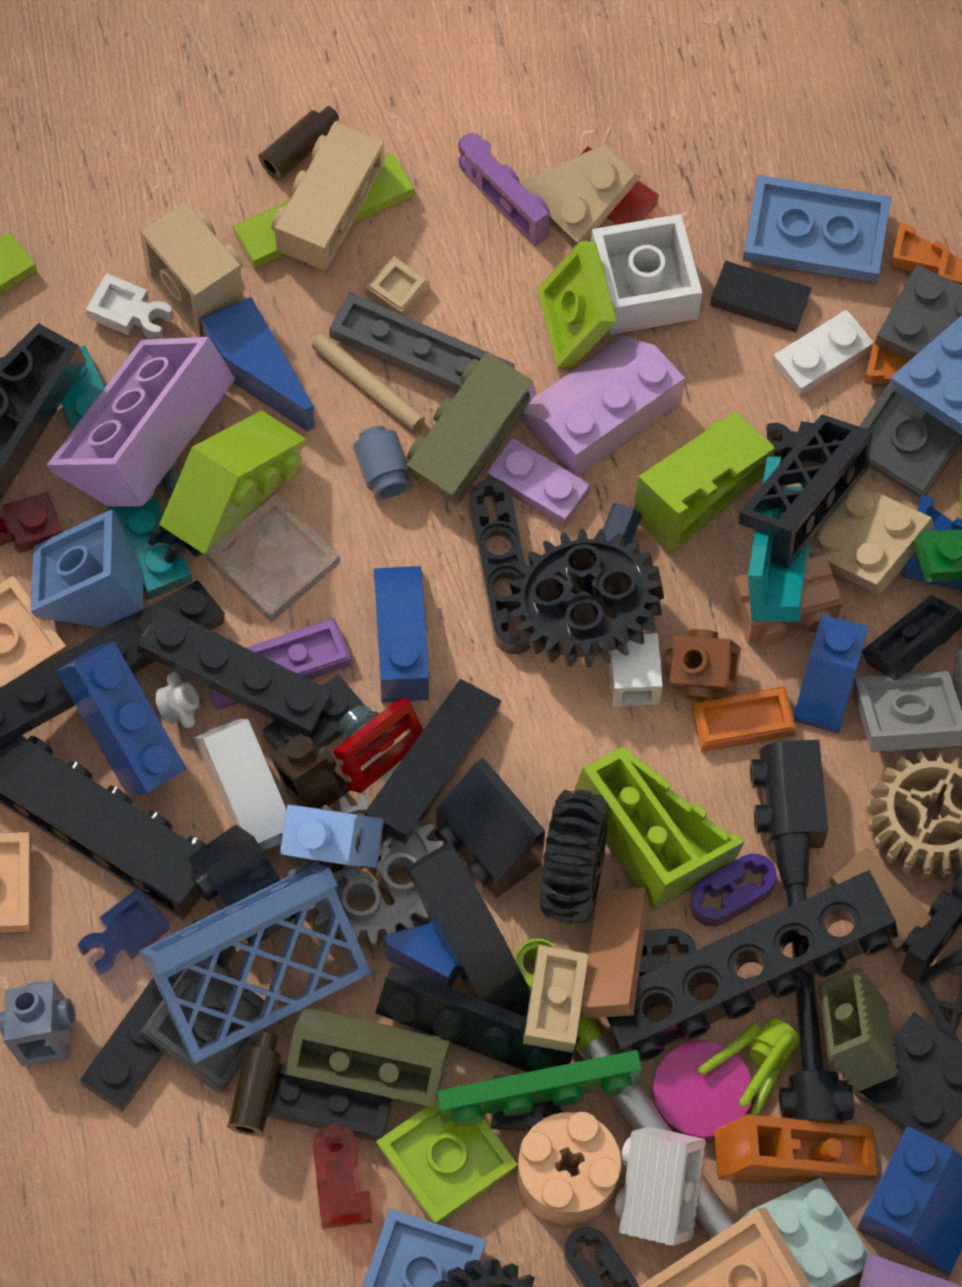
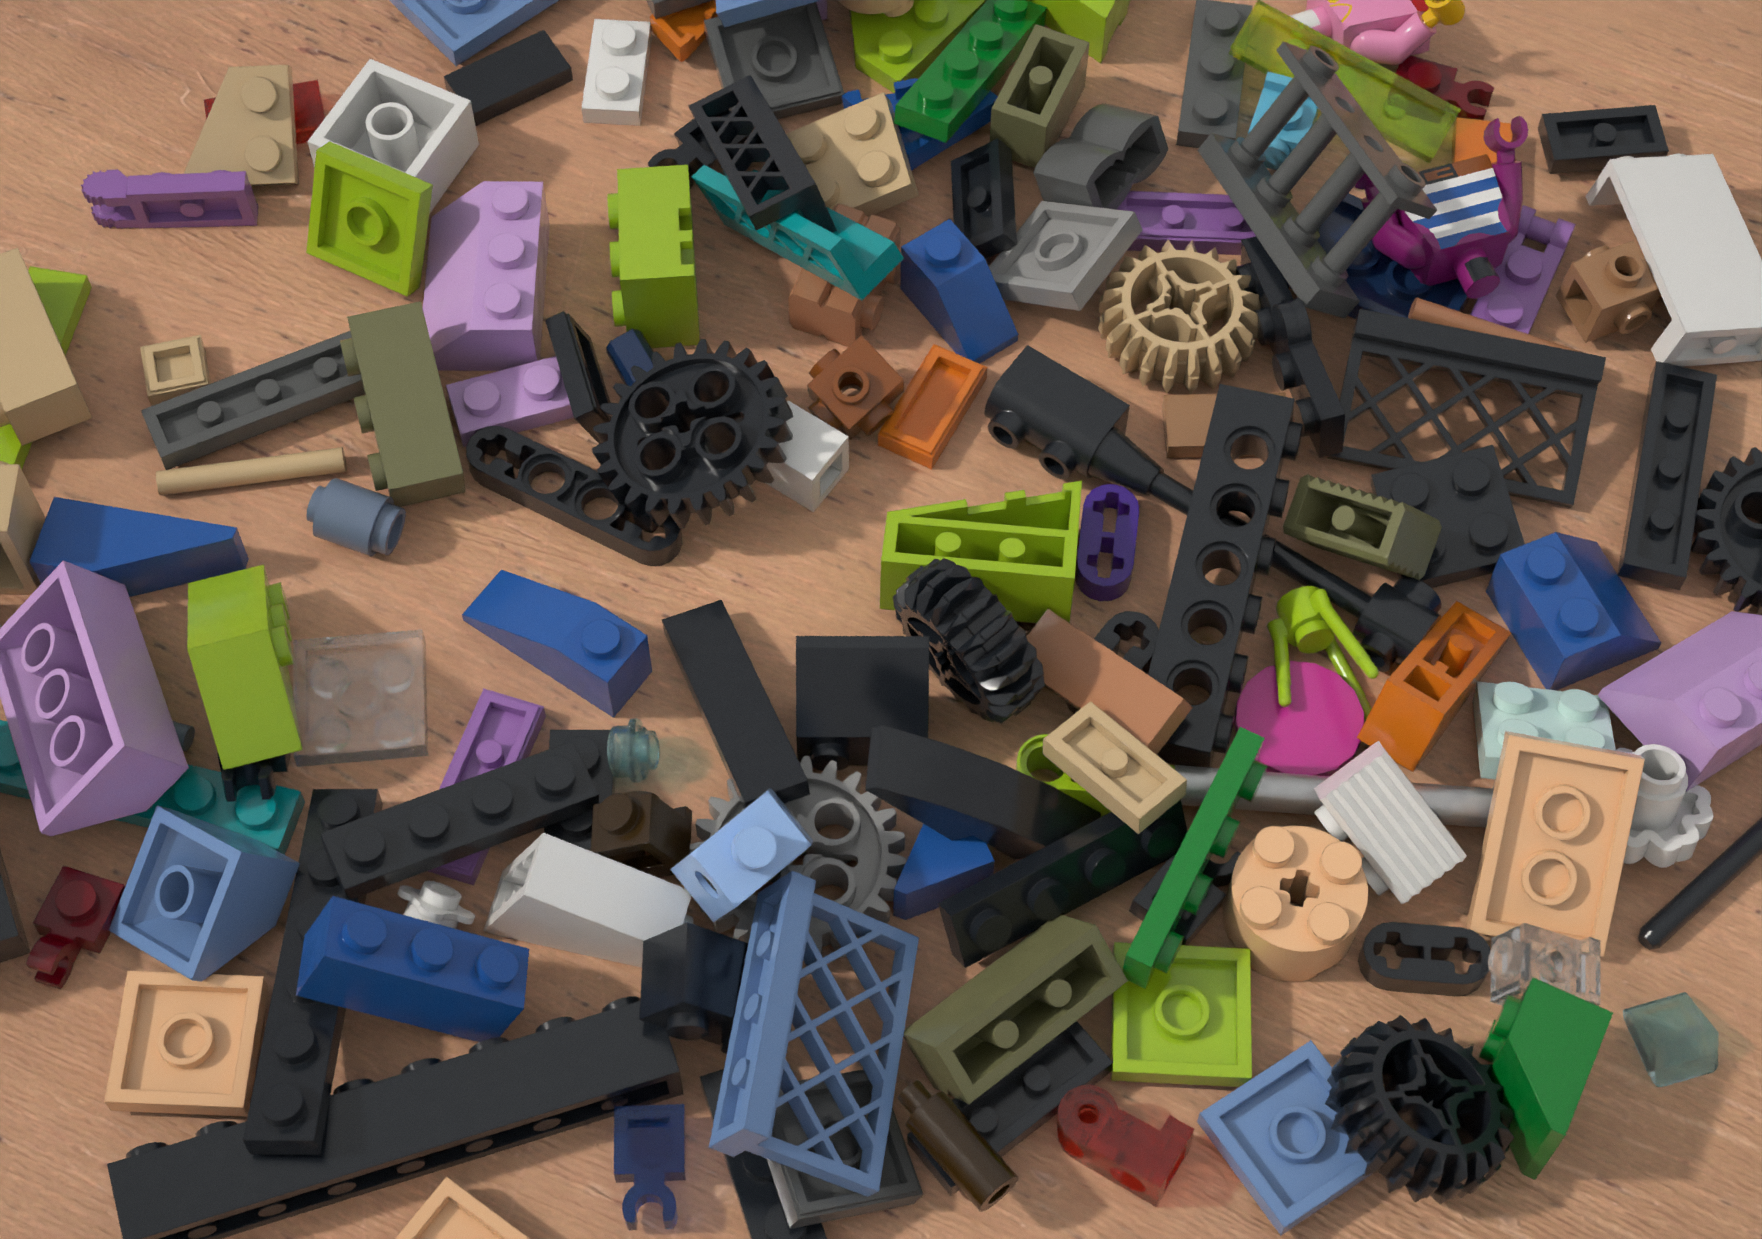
camera: 50 degrees left, 5 degrees down
(376, 738) = (671, 742): red tile -> none
(582, 502) = (579, 371): none -> black tile

